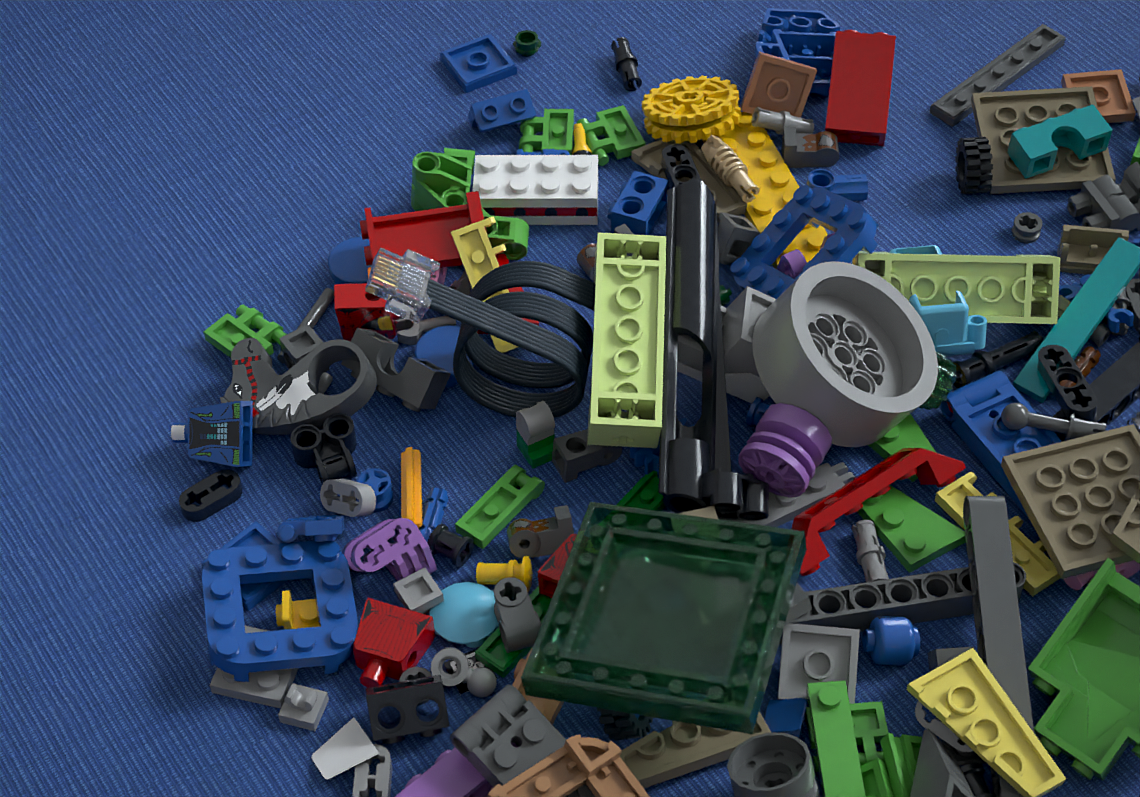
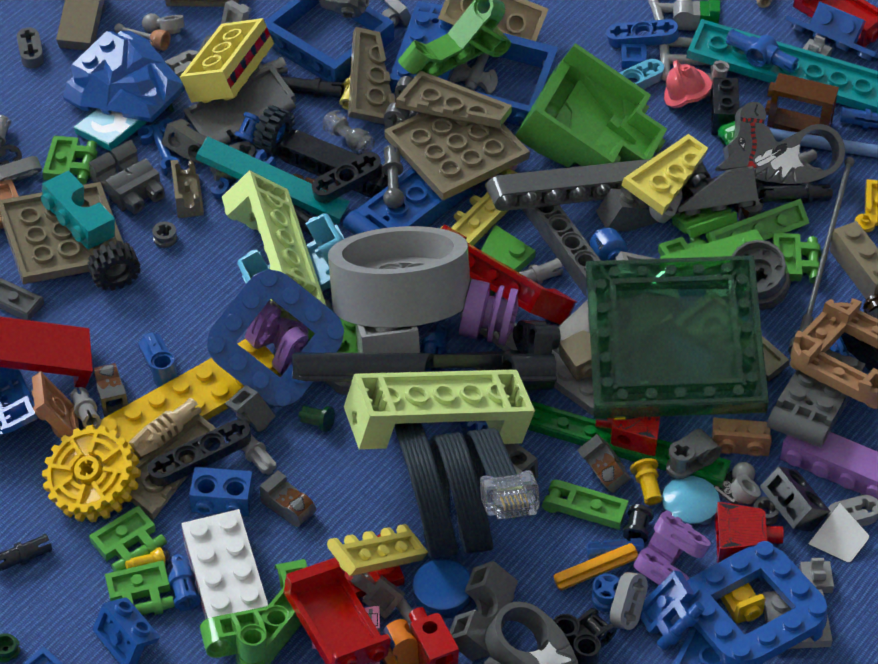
camera: 110 degrees left, 0 degrees up
(418, 592) = (699, 520): light grey tile -> none

